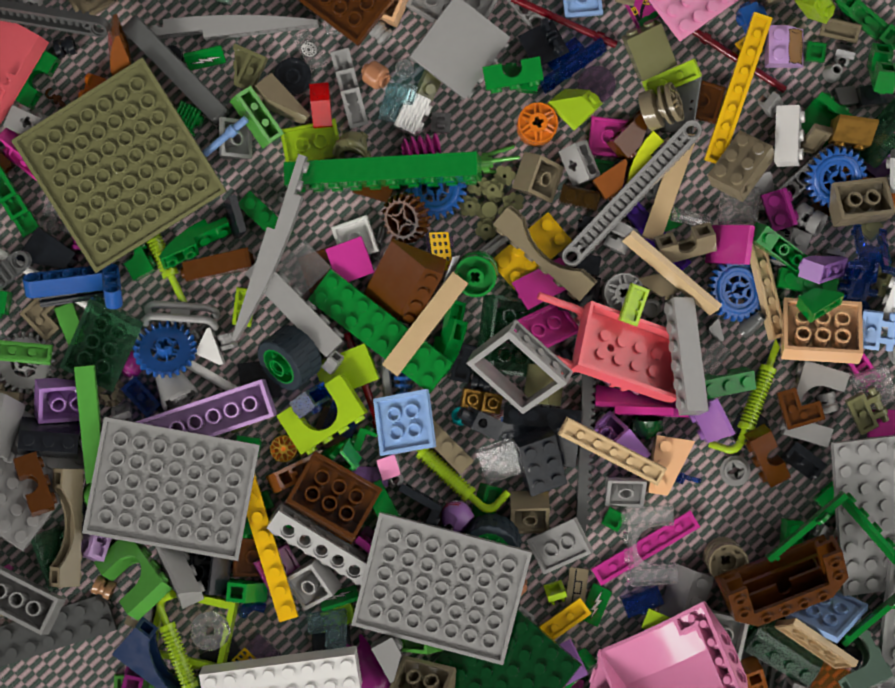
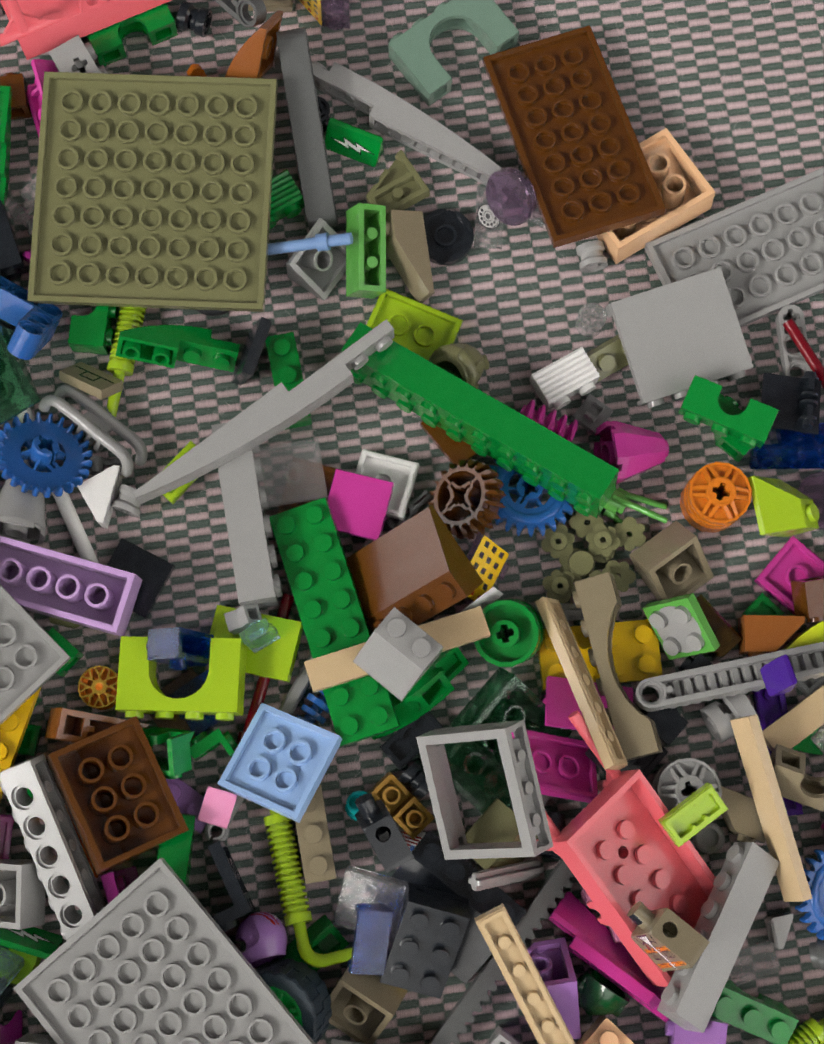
camera: 30 degrees right, 10 degrees down
(57, 99) = (137, 68): reddish brown hand -> none
(160, 291) = (91, 380): none -> dark tan tile
(217, 265) = (185, 396): reddish brown slope -> none
(289, 357) = (191, 572): black wheel -> none
(314, 31) = (511, 196): none -> clear purple tile
(321, 105) = (456, 290): red slope -> none
(347, 365) = (259, 635): none -> clear light blue plate
(349, 87) = (506, 295): light grey slope -> none
(375, 75) = (550, 301): nougat head -> none
(394, 96) = (557, 341): clear light blue plate -> none
(427, 327) = (398, 654): none -> light grey slope
(473, 130) = (630, 448): none -> dark pink cone
(512, 479) = (370, 939): none -> clear blue hinge
(531, 275) = (581, 684): none -> tan tile
(559, 399) = (505, 875): none -> light grey axle
(564, 208) = (681, 626): none -> piece
(579, 163) = (738, 582): light grey brick -> none
(631, 202) = (779, 676): none -> dark purple slope
(659, 377) = (666, 938): none -> dark tan torso

